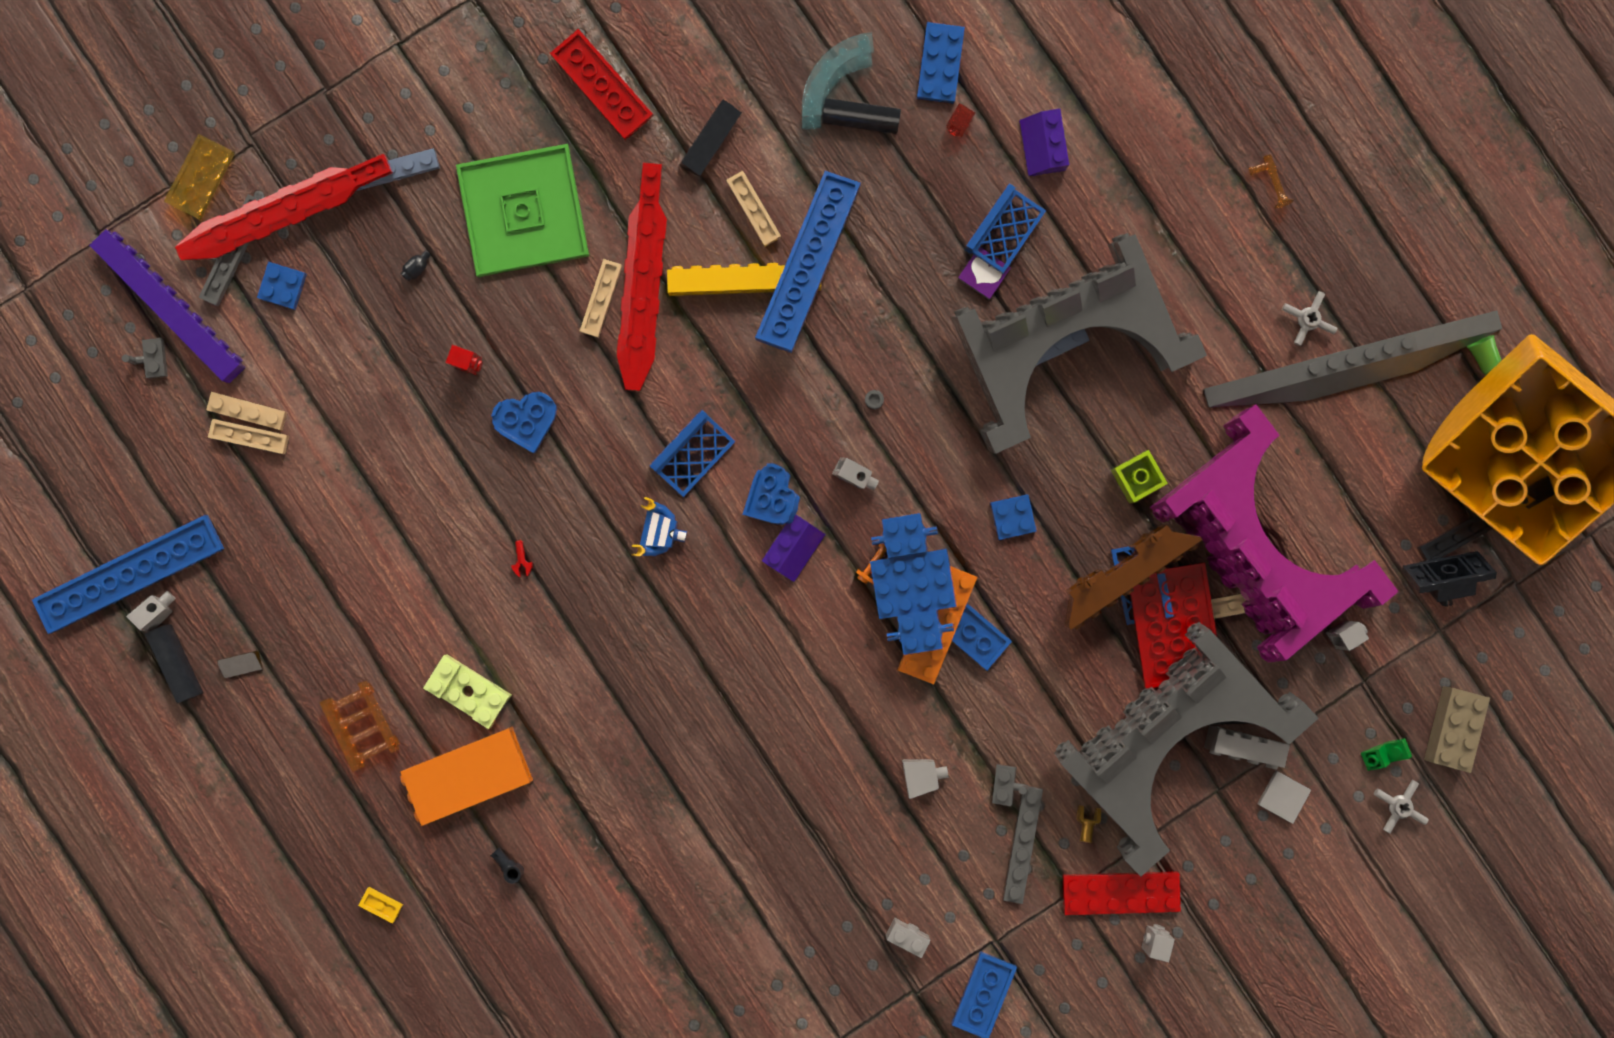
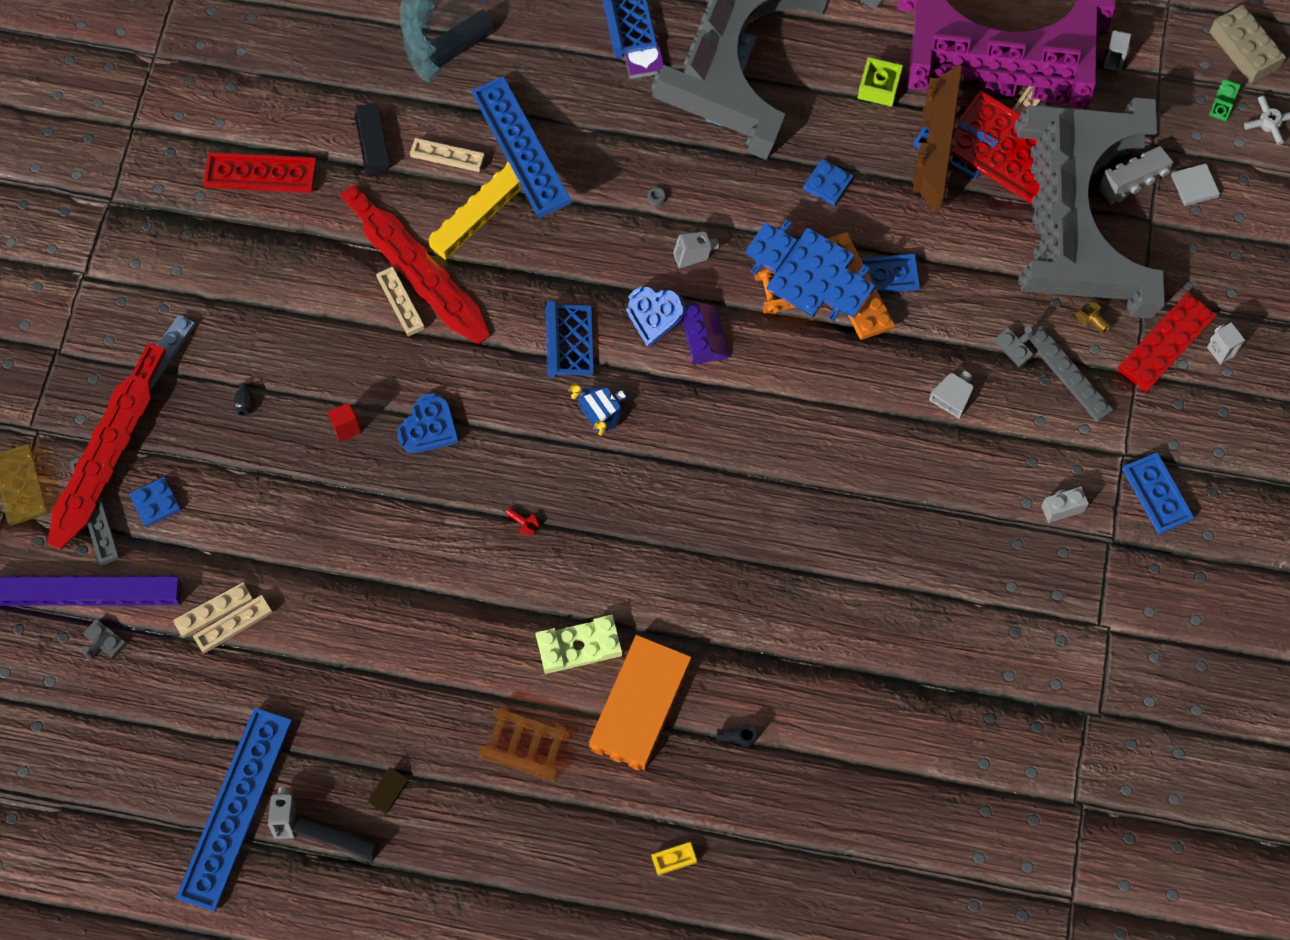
camera: 45 degrees left, 20 degrees down
(522, 210) = (284, 298): bright green tile -> none

